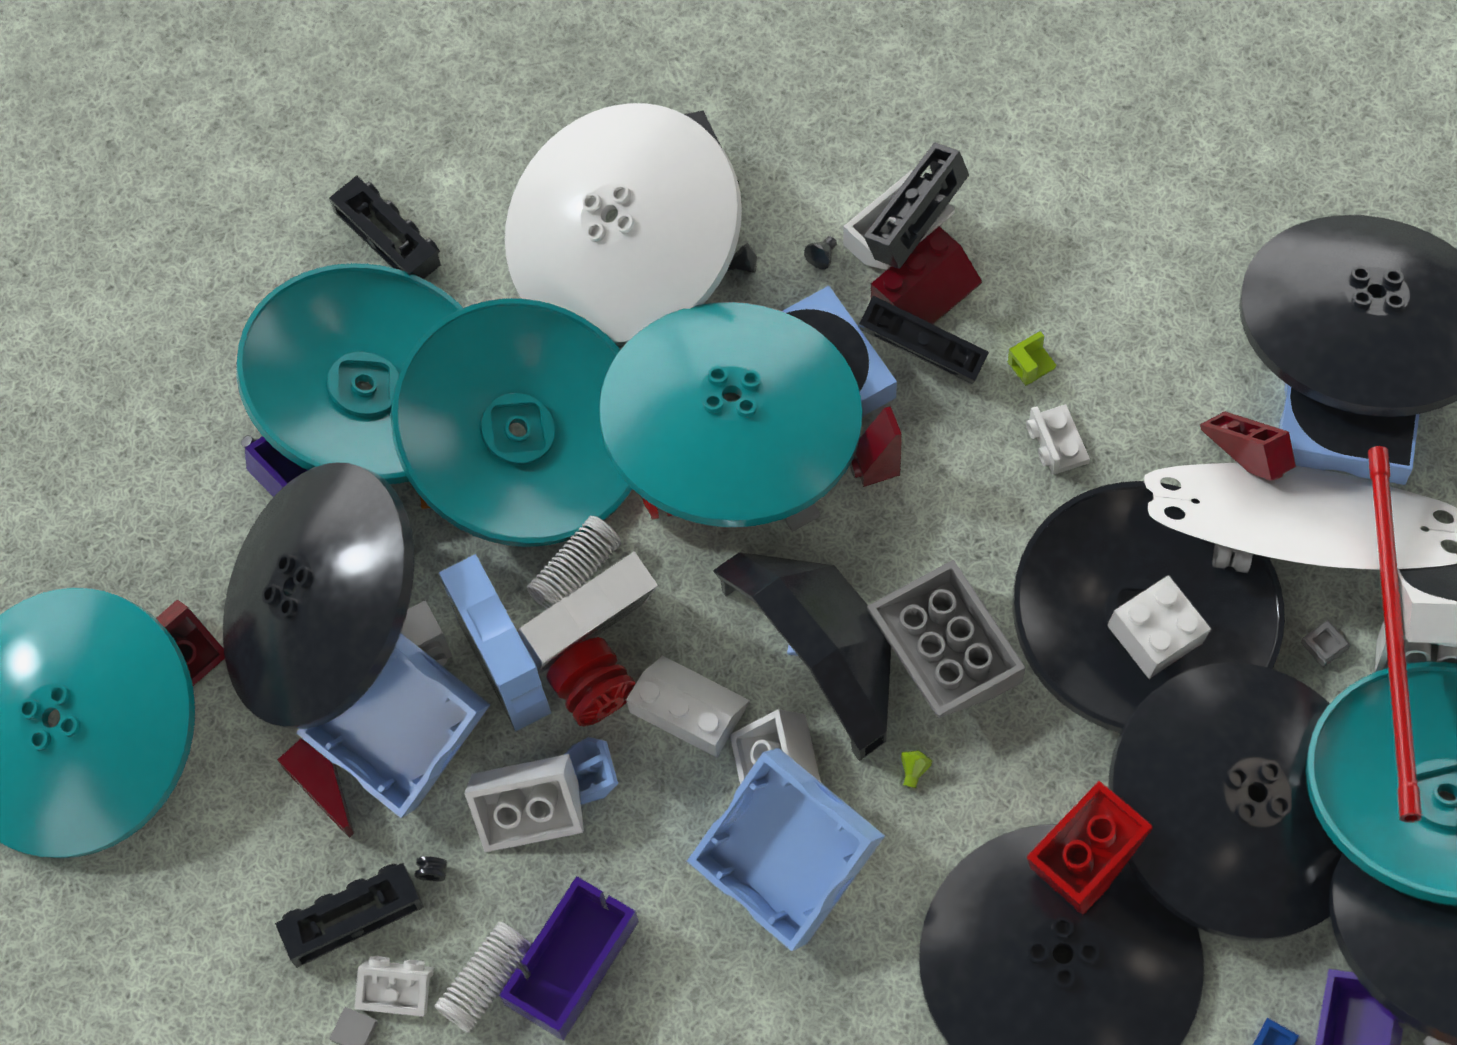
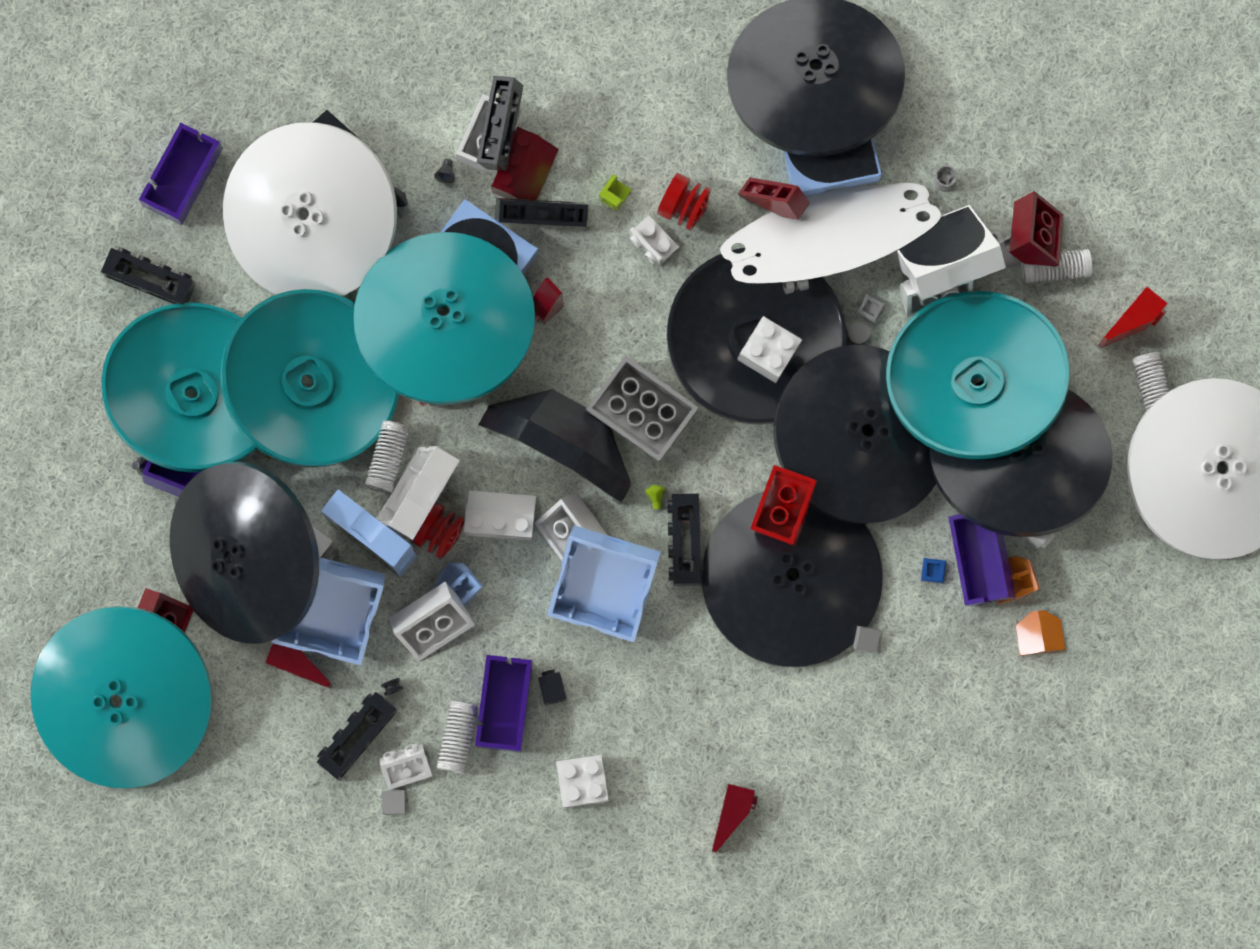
camera: 30 degrees left, 15 degrees up
(487, 126) = (181, 173): none -> dark purple piece
(648, 967) = (551, 687): none -> black brick
(949, 792) = (684, 503): none -> black brick
(1121, 400) = (684, 201): none -> red wheel
(1297, 665) = (858, 333): none -> light grey tile
(1408, 790) = (955, 395): red piece -> none

